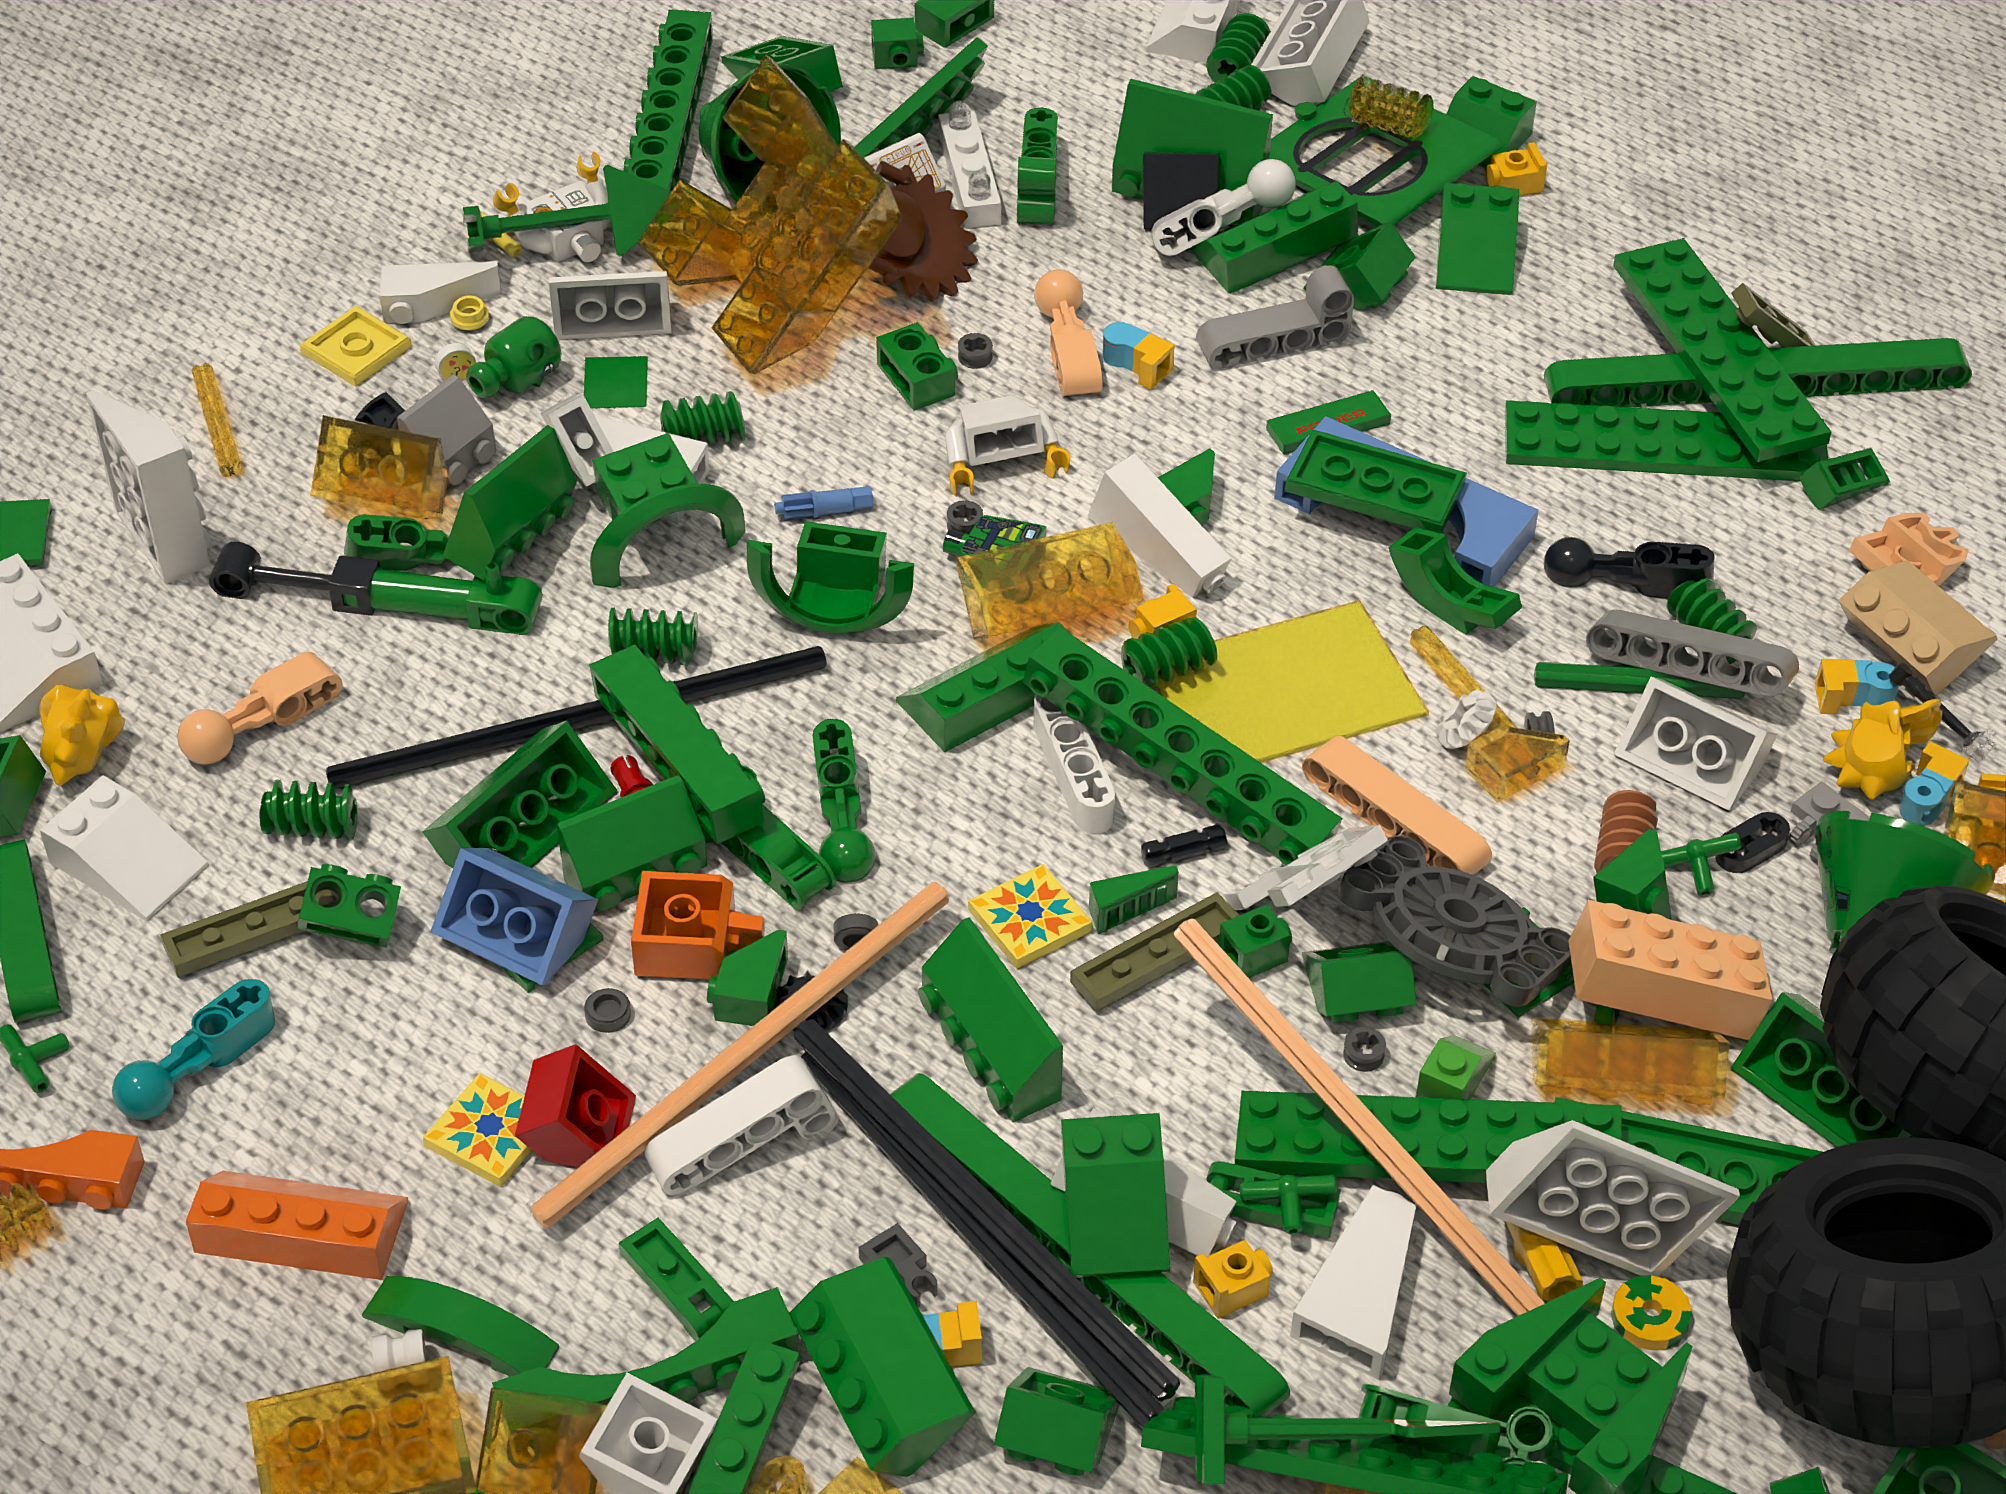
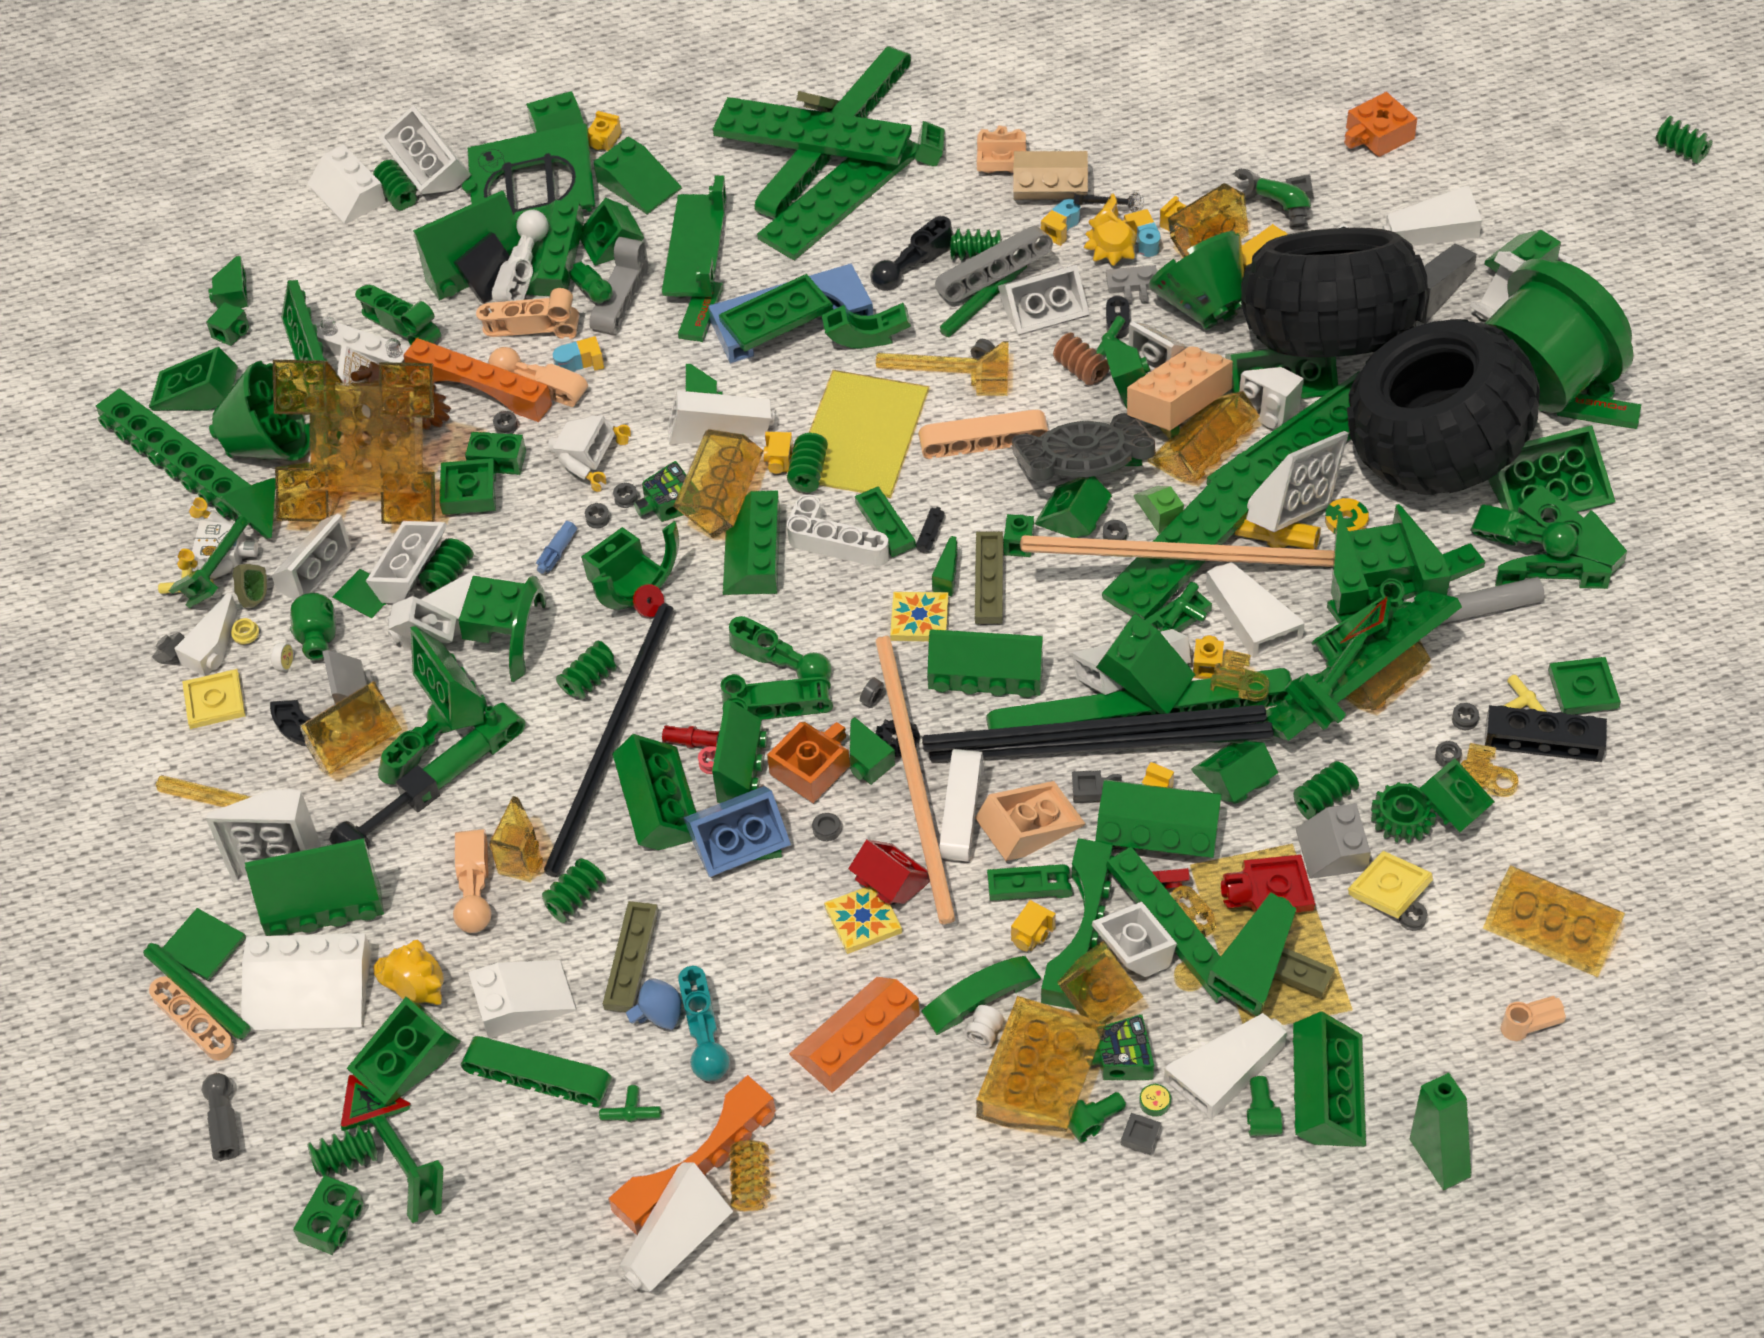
camera: 50 degrees left, 5 degrees up
(122, 573) = (315, 888): none -> green slope
(189, 984) = (657, 1003): none -> medium blue piece
(335, 711) = (515, 844): none -> clear yellow slope
(346, 918) = (670, 904): green brick -> none
(388, 258) = (166, 647): none -> dark grey plate
(530, 277) = (250, 584): none -> rock
(601, 1320) = (1032, 926): none -> yellow brick
(647, 379) = (405, 559): none -> white slope
(678, 742) = (687, 694): green brick -> none
(782, 1218) = (1027, 819): none -> light nougat slope
(807, 1439) = (1172, 878): none -> red plate
(821, 619) = (640, 600): none -> red wheel
(837, 358) = (467, 478): none -> green brick
(910, 521) = (601, 510): none -> dark grey bush
(1016, 301) = (518, 393): none -> orange arch
(1140, 808) = (885, 520): none -> green plate
(1154, 275) = (531, 316): none -> light nougat piece
(1178, 747) = (880, 490): green brick -> none
(1217, 1315) = (1236, 677): none -> clear yellow piece
(1242, 88) = (429, 204): green piece -> none
(1253, 293) = (591, 282): none -> green piece
(1312, 868) = (1012, 469): white wing -> none
(1390, 107) = (517, 149): clear yellow piece -> none
(1428, 351) = (695, 242): none -> green bracket
(1466, 719) = (963, 368): white gear -> none
(1729, 896) = (1153, 344): none -> white slope
(1766, 1085) = (1273, 394): none -> white slope

